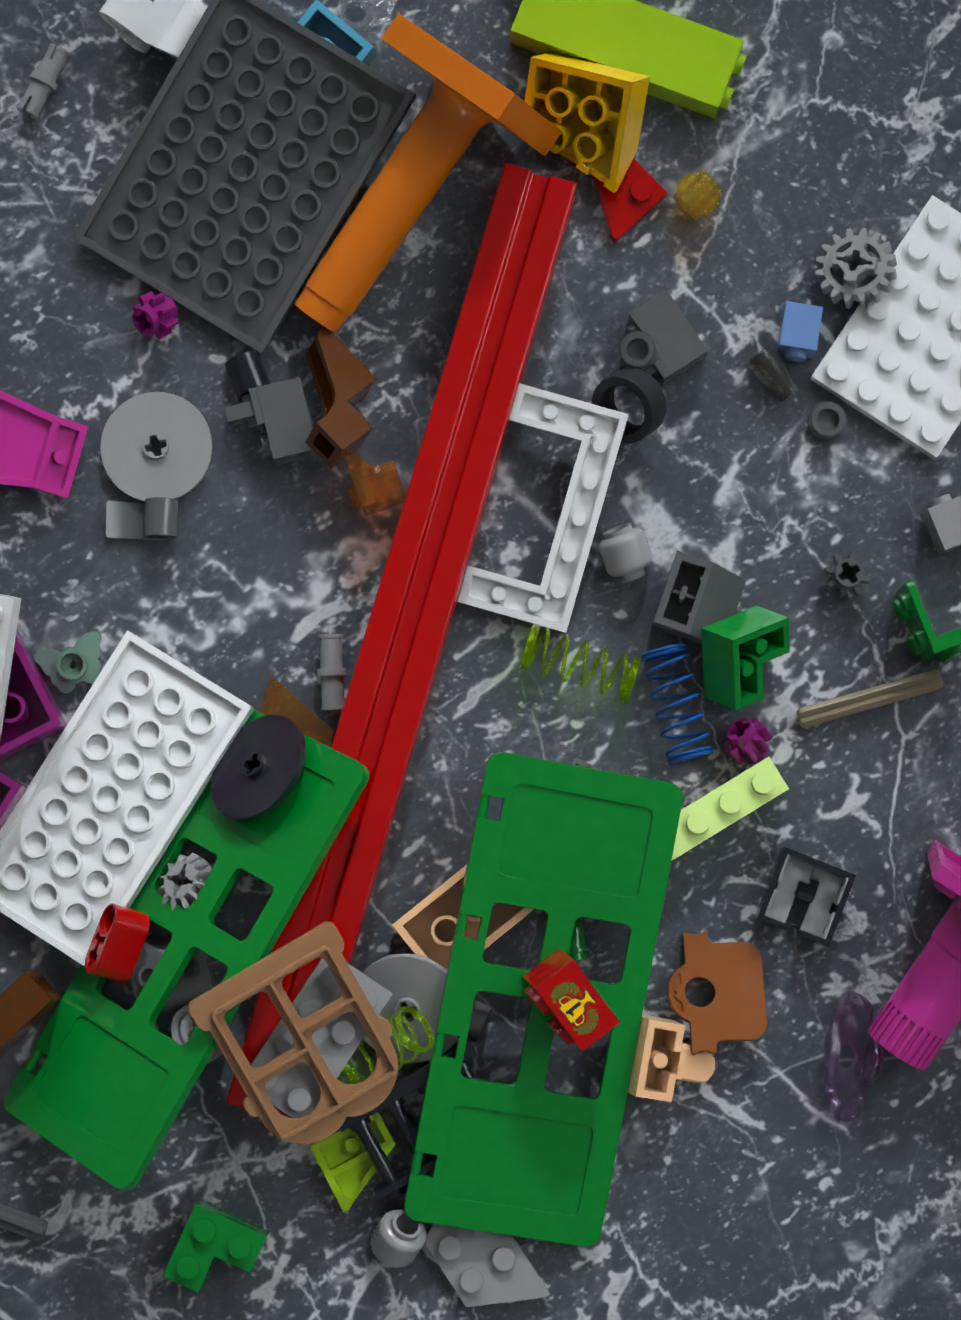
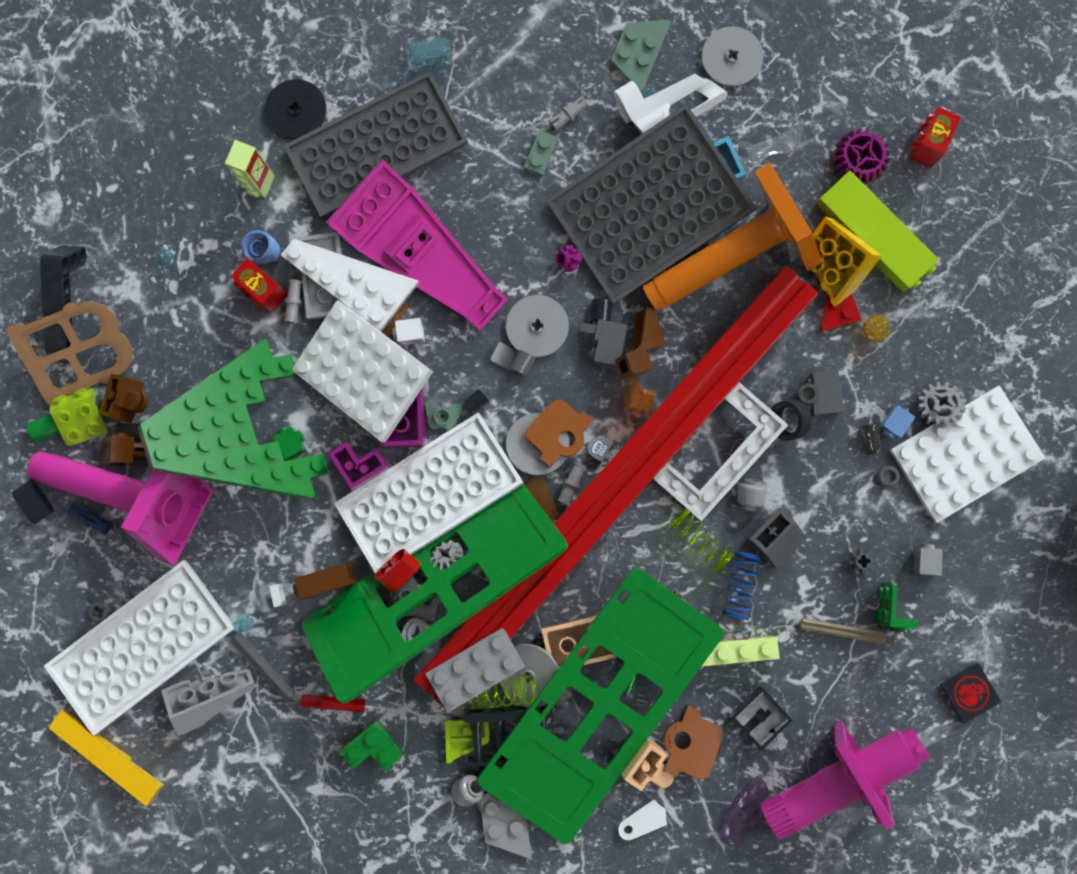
camera: 30 degrees right, 0 degrees up
(29, 166) = (541, 153): none -> sand green plate
(115, 616) = (476, 402): none -> black brick
(116, 1207) = (331, 703): none -> red axle
(250, 600) = (547, 427): none -> dark orange piece
(257, 662) = (523, 453): none -> light grey piece
(259, 768) = (512, 516): black piece -> none
(336, 1098) = (470, 707): medium nougat window -> none
(348, 596) = (598, 448): none -> tile
(567, 994) = (614, 715): red brick -> none
(700, 1149) = (644, 821): none -> white piece
(735, 654) = (785, 574): green brick -> none
(747, 741) = (769, 622): magenta gear -> none

